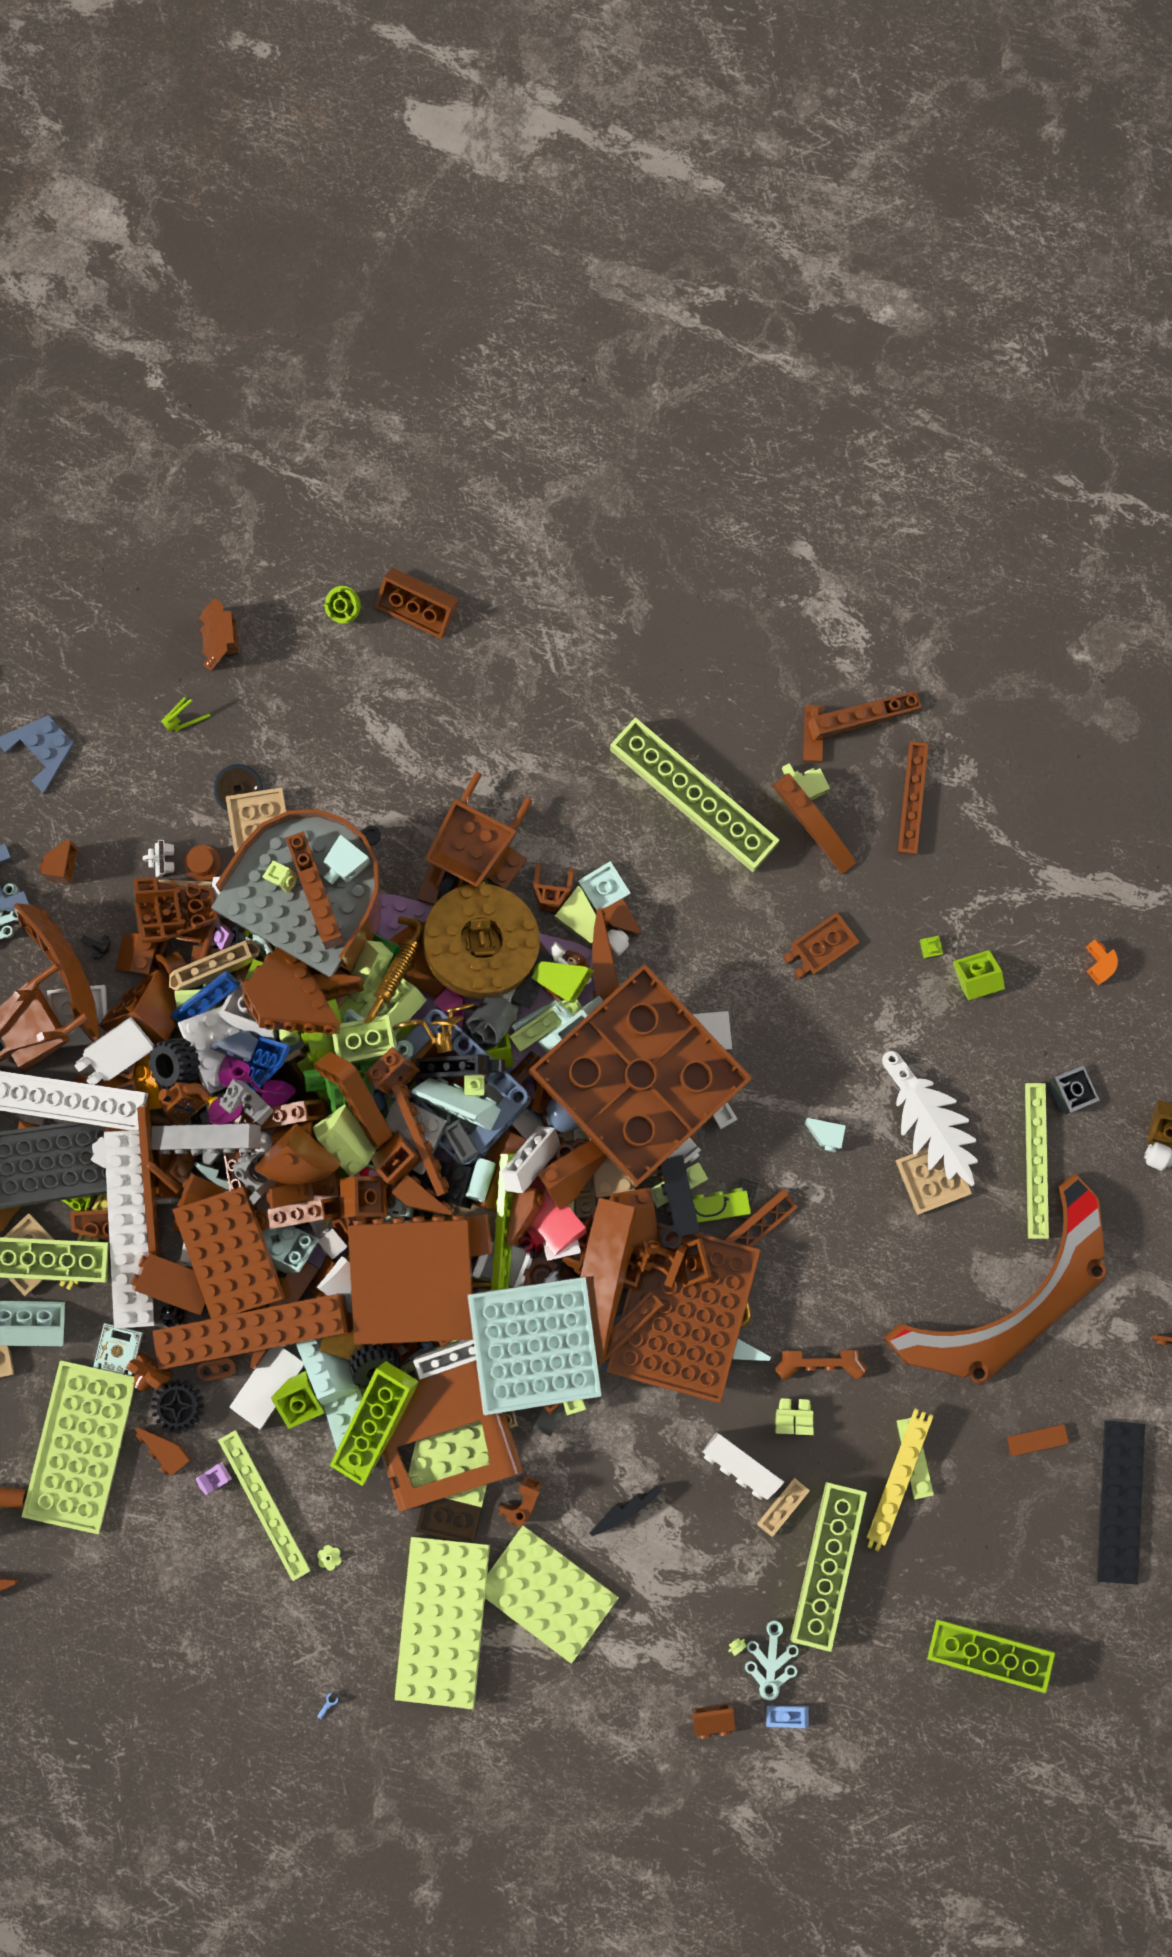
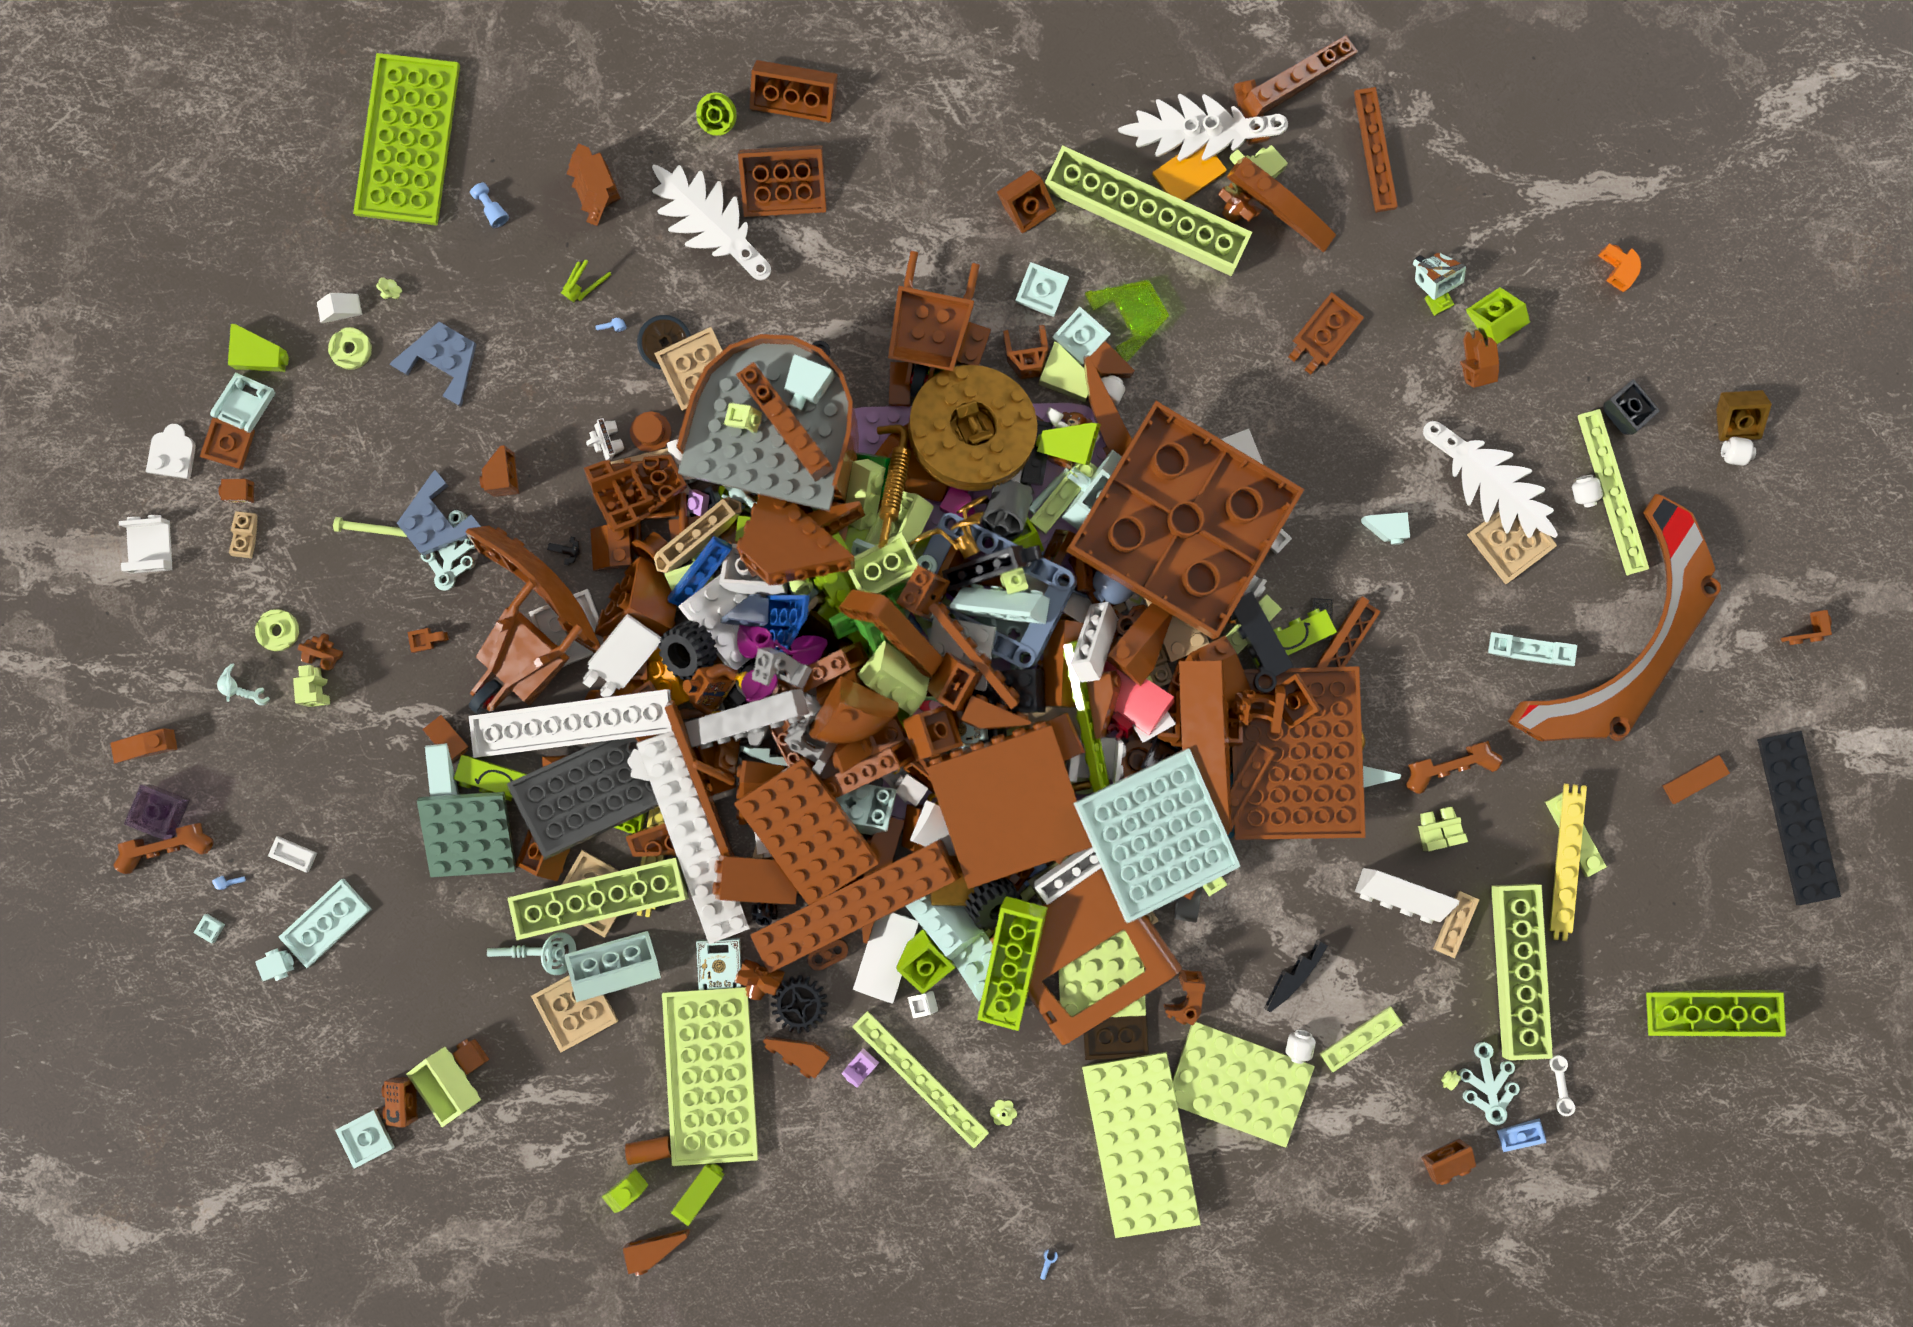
camera: 15 degrees left, 5 degrees up
(14, 674) = (389, 288): none -> yellowish green plant
(37, 1547) = (698, 1193): none -> lime slope
(69, 550) = (406, 139): none -> lime plate
(124, 633) = (492, 210): none -> light blue piece
(202, 761) = (617, 323): none -> light blue hand
(287, 1439) = (923, 1004): none -> white slope
(308, 692) = (707, 217): none -> white plant
(383, 677) = (782, 180): none -> dark orange slope
(461, 1141) = (1017, 644): dark grey tile -> none
(480, 1180) = (1049, 678): light aqua pin -> none
(582, 836) = (1042, 289): none -> light aqua plate
(591, 756) = (1027, 201): none -> dark orange slope
(611, 1575) = (1300, 1046): none -> white head
(662, 877) = (1139, 309): none -> clear neon green wing
(668, 1586) = (1361, 1039): none -> yellowish green tile
(743, 770) = (1188, 176): none -> light orange tile
(761, 735) = (1197, 128): none -> white plant
(776, 812) = (1239, 204): none -> dark orange plant
(834, 1699) = (1564, 1104): none -> white bar
(922, 1280) = (1532, 650): none -> light aqua slope
(935, 923) = (1438, 274): none -> light aqua torso
(949, 1014) = (1481, 360): none -> dark orange piece
(1013, 1153) = (1587, 490): none -> white head

